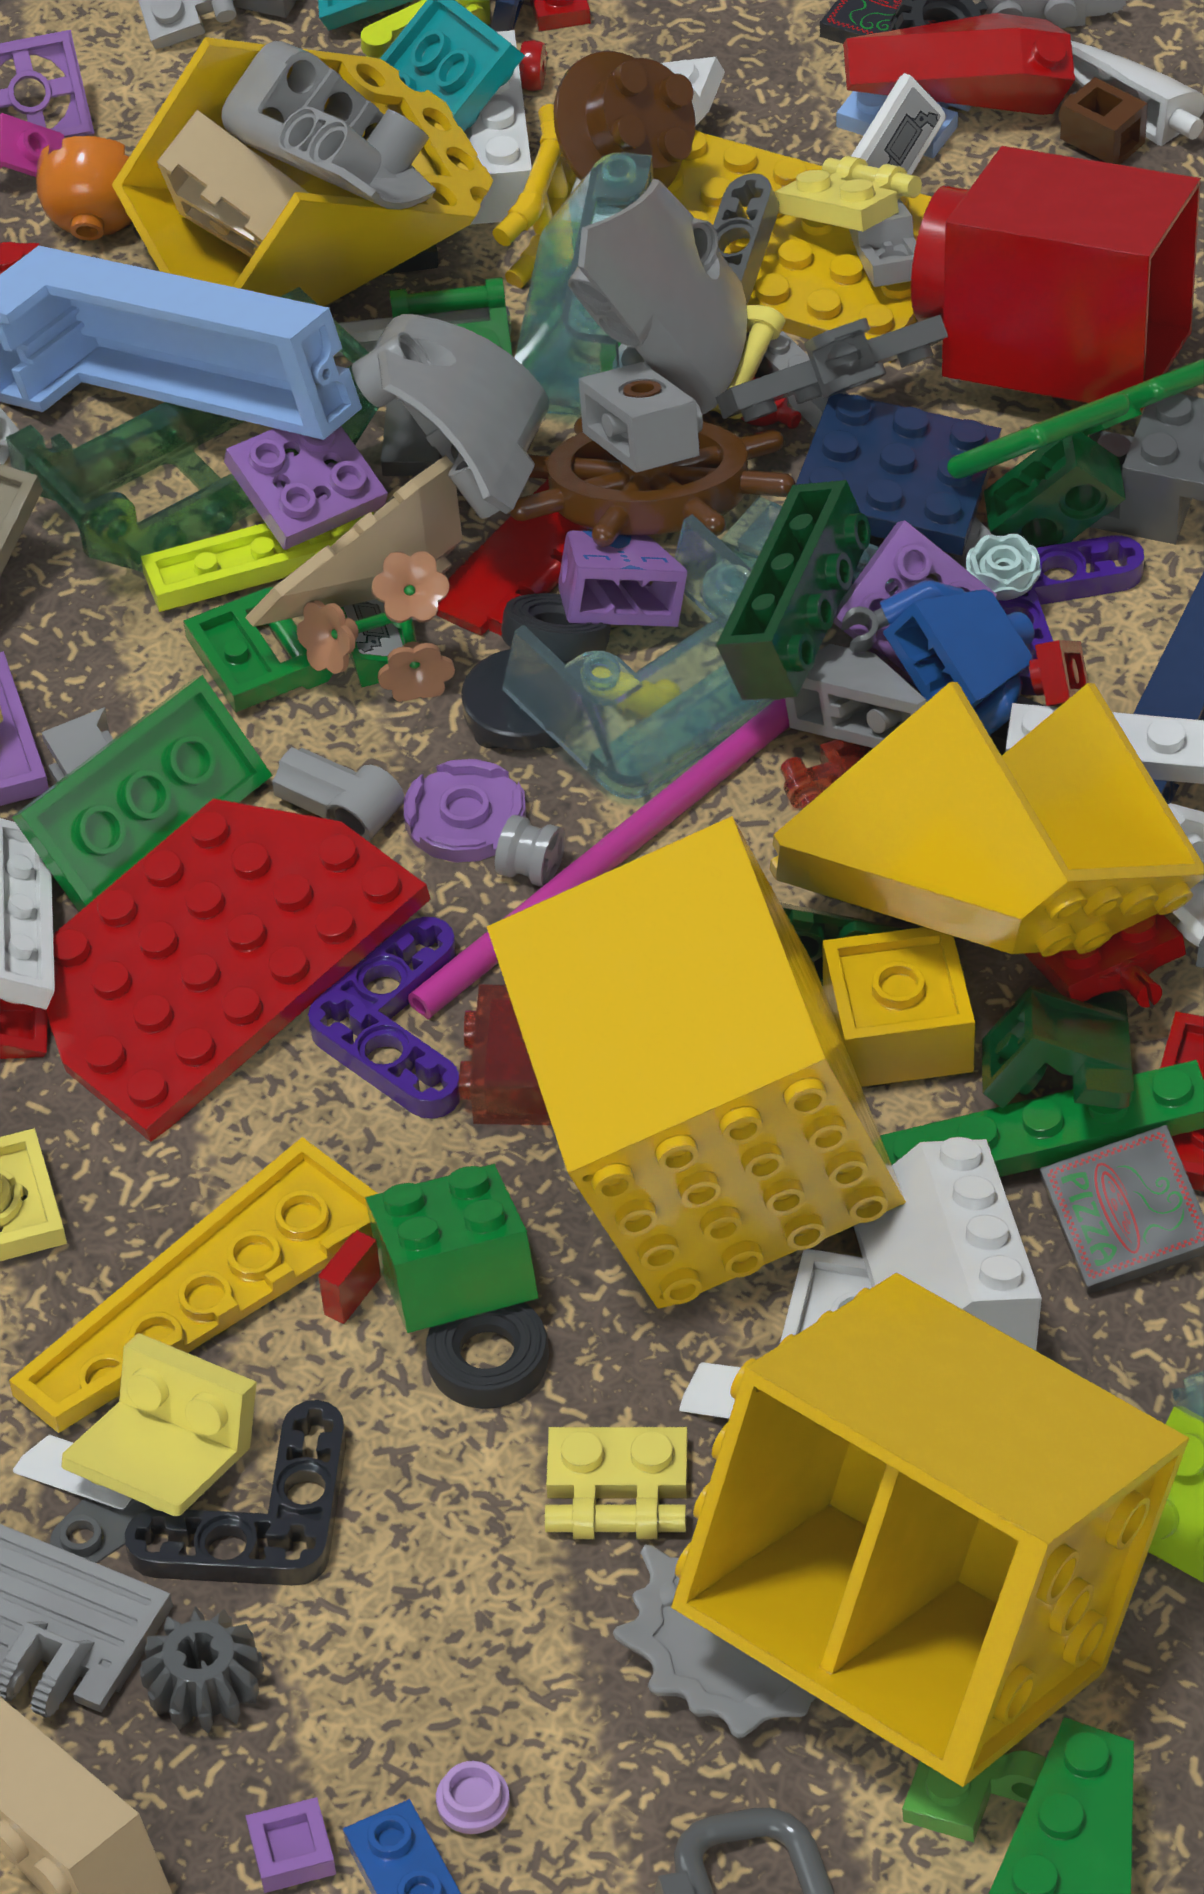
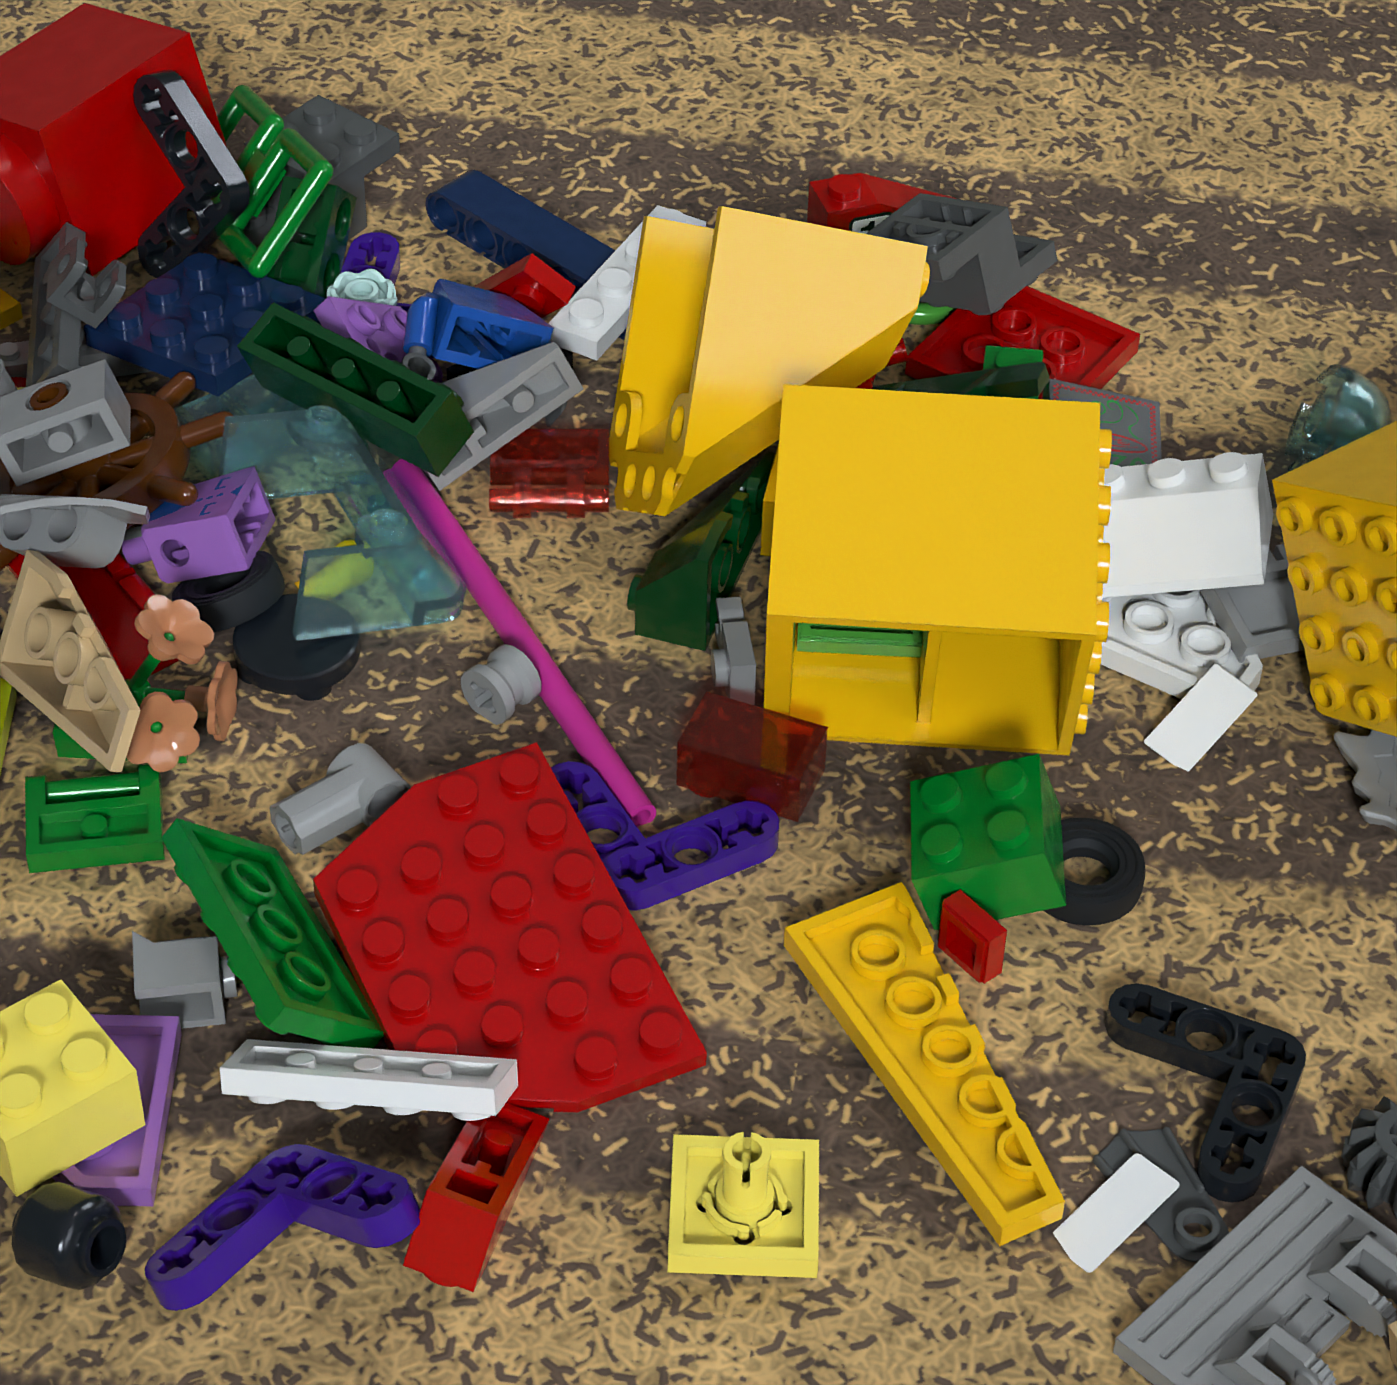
camera: 75 degrees left, 5 degrees down
(170, 1431) = (1112, 1118): light yellow bracket -> none
(464, 827) = (409, 741): medium lavender tile -> none
(616, 1464) = (1242, 821): light yellow plate -> none
(1038, 344) = (160, 102): none -> black beam

